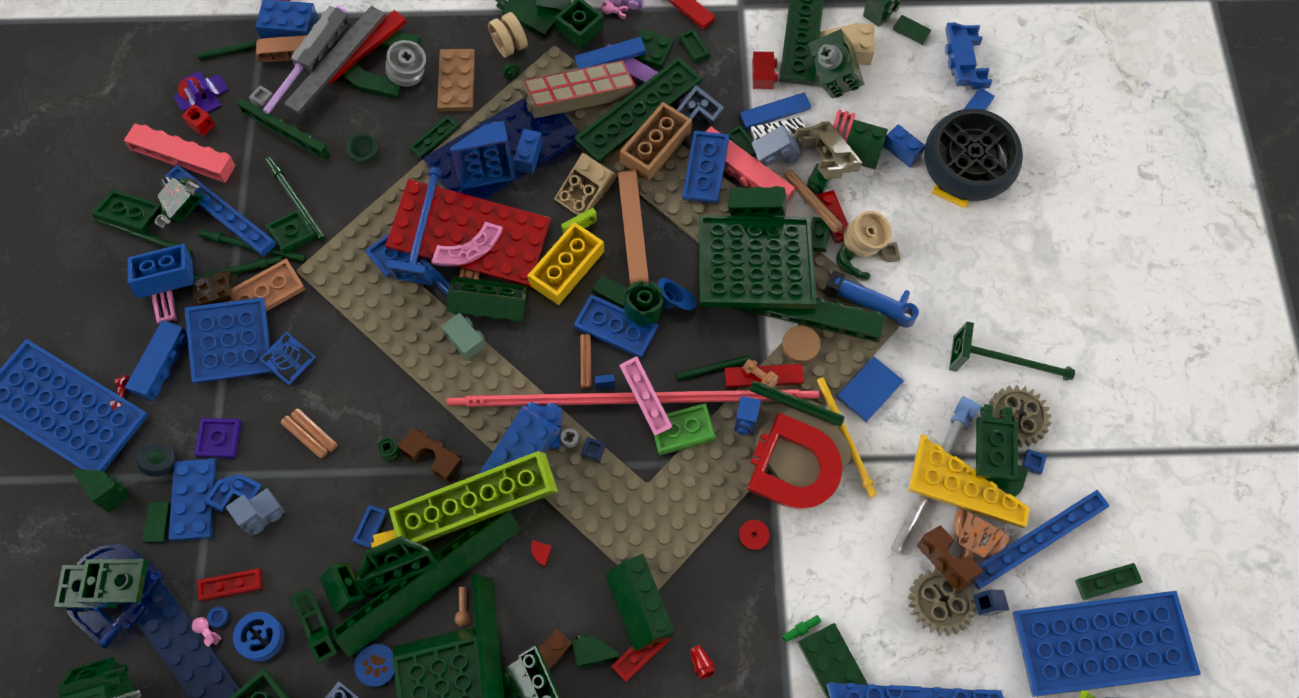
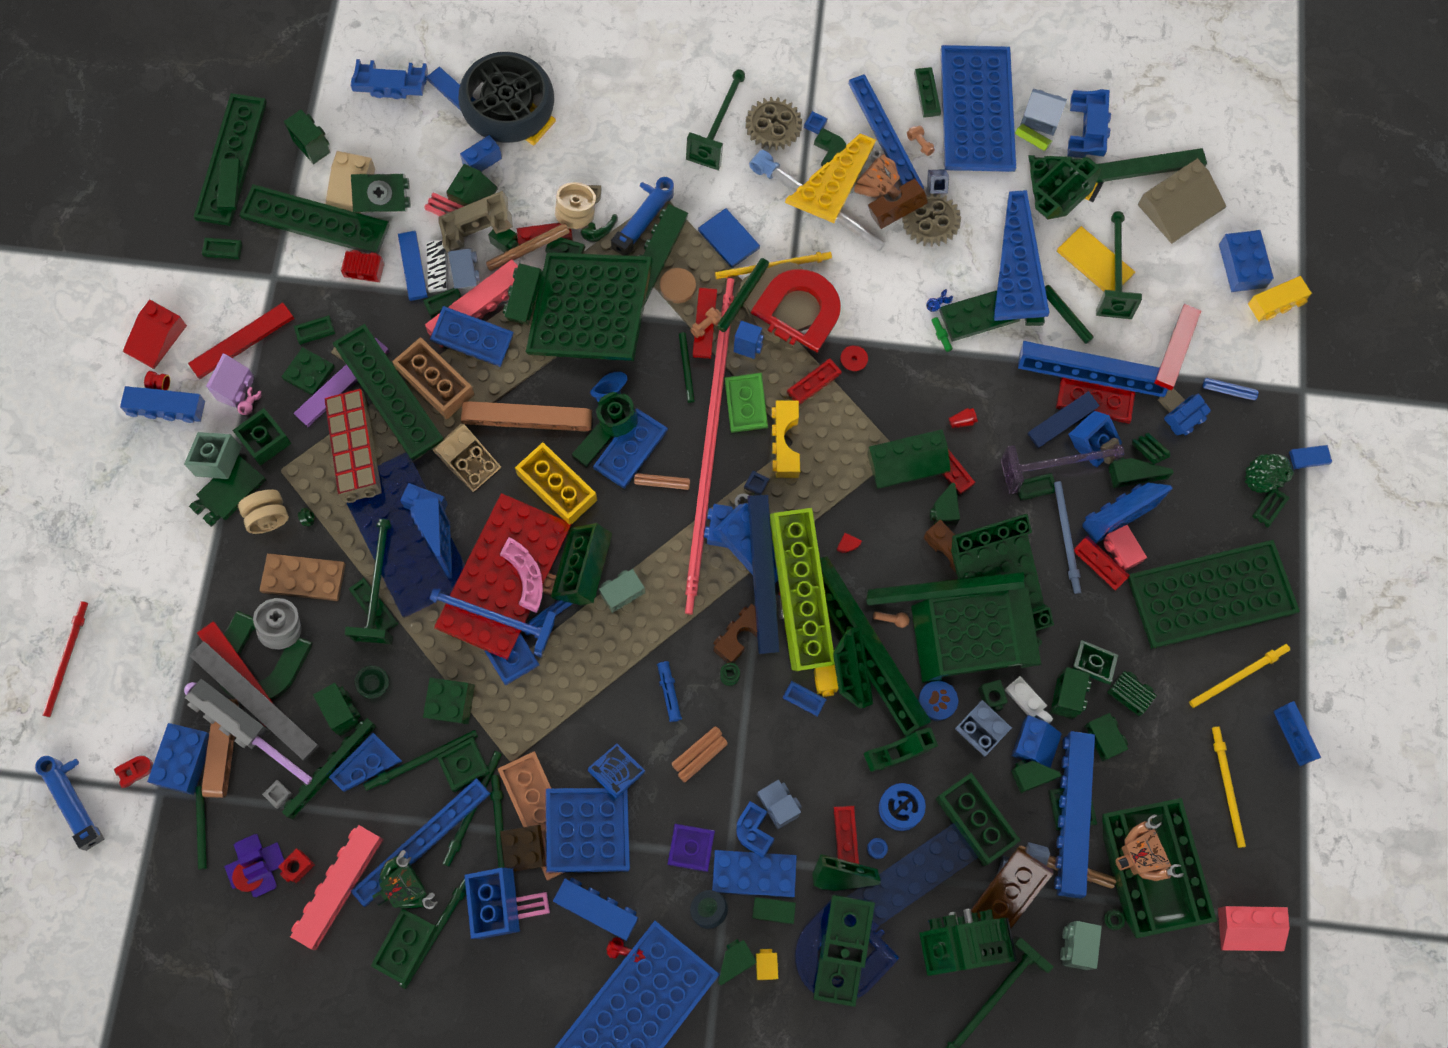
camera: 85 degrees left, 5 degrees up
(101, 520) = (766, 965): none -> yellow brick
(186, 584) = (841, 874): none -> dark green slope
(201, 625) = (884, 864): bright pink arm -> none
(290, 155) = (364, 763): none -> blue wing
(332, 122) = (337, 709): none -> dark green brick
(341, 587) = (865, 724): dark green brick -> none
(345, 207) = (449, 700): none -> dark green brick
(377, 393) = (667, 684): none -> blue pin
(402, 134) = (369, 632): none -> dark green tile
(485, 459) = (763, 574): none -> dark blue tile
(584, 220) = (509, 468): lime tile -> none
(605, 382) = (688, 464): blue tile -> none
(612, 53) = (311, 411): blue tile -> none
(645, 396) = (714, 425): bright pink plate -> none
(668, 466) = (787, 461): none -> yellow arch
(700, 104) = (396, 331): sand blue brick -> none
(717, 494) = (814, 381): none -> red tile
(837, 616) = (934, 304): none -> clear blue arm
(912, 29) = (343, 122): dark green tile -> none
(996, 444) = (802, 142): dark green tile -> none
(1050, 573) = (917, 133): none -> nougat bar

